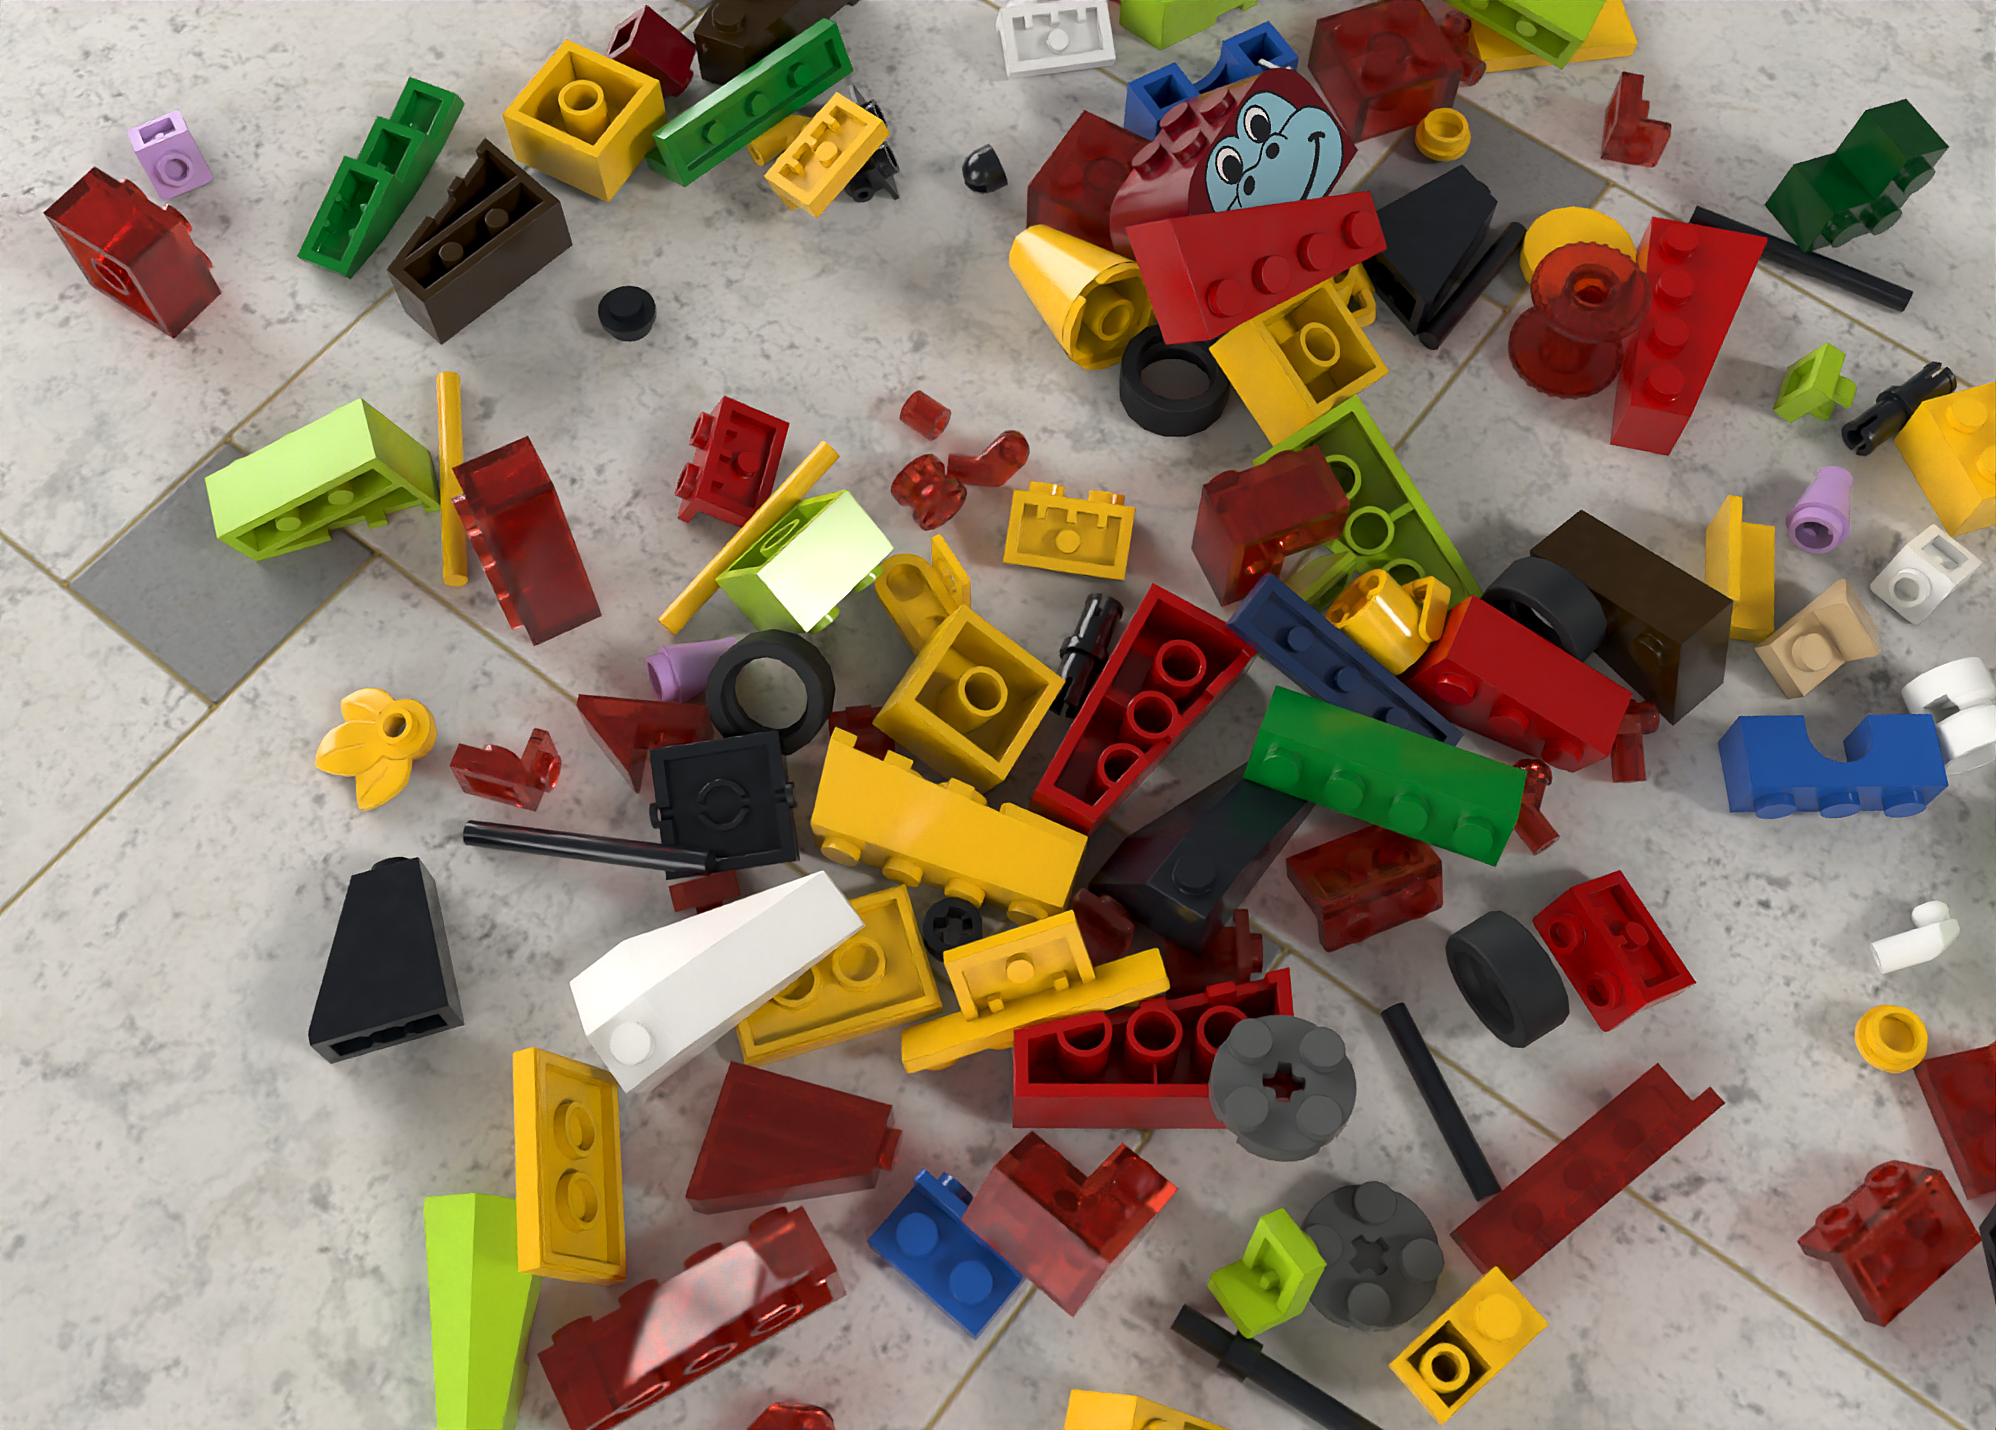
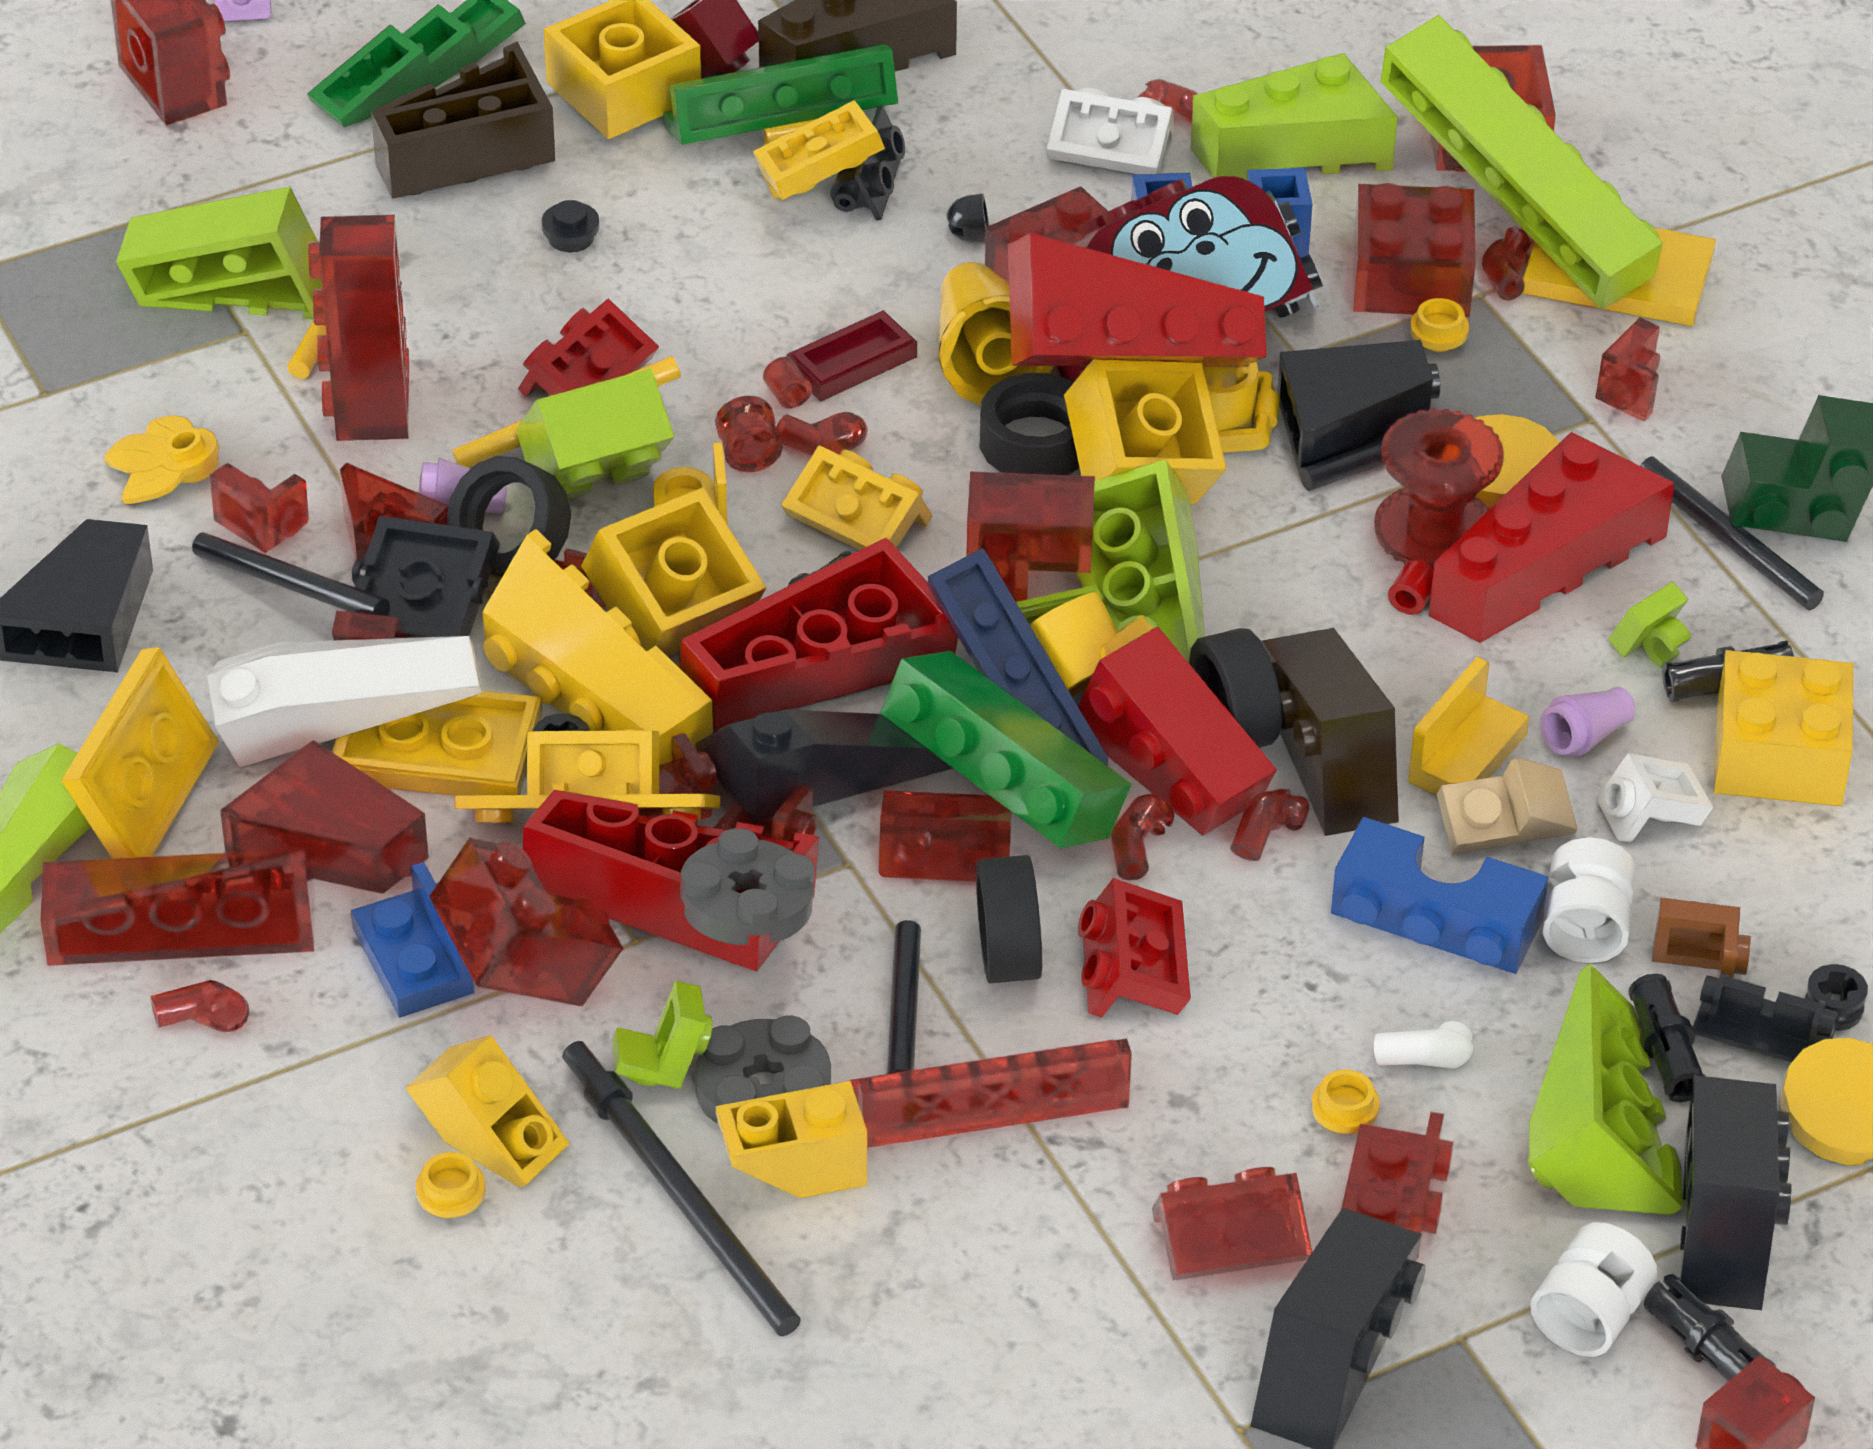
camera: 25 degrees right, 20 degrees down
(963, 358) = (854, 354): none -> dark red tile
(1591, 424) = (1411, 588): none -> red piece

